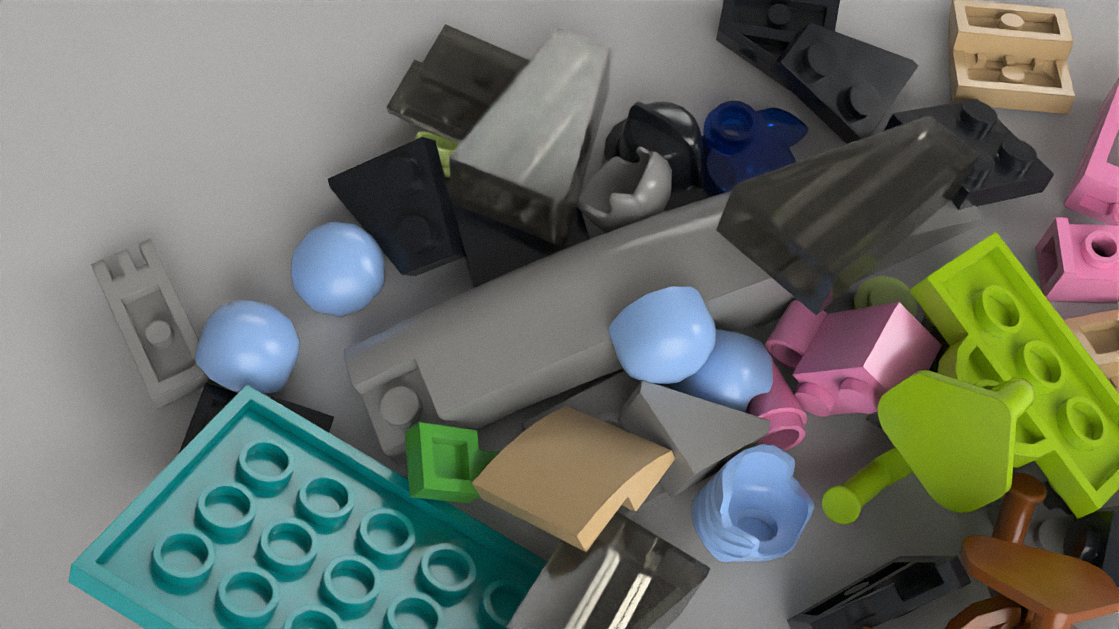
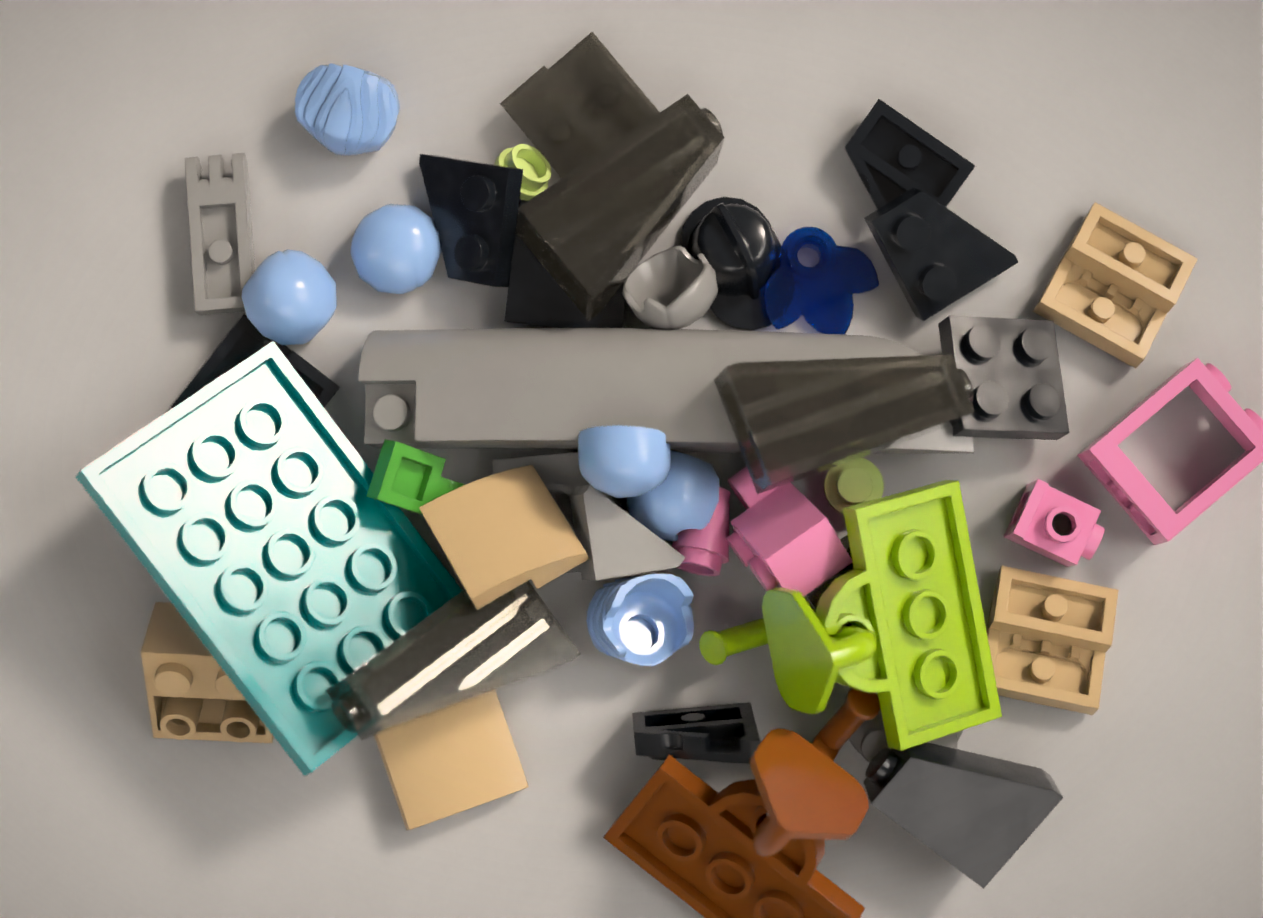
camera: 25 degrees right, 20 degrees up
(239, 161) = (347, 108): none -> light blue hair

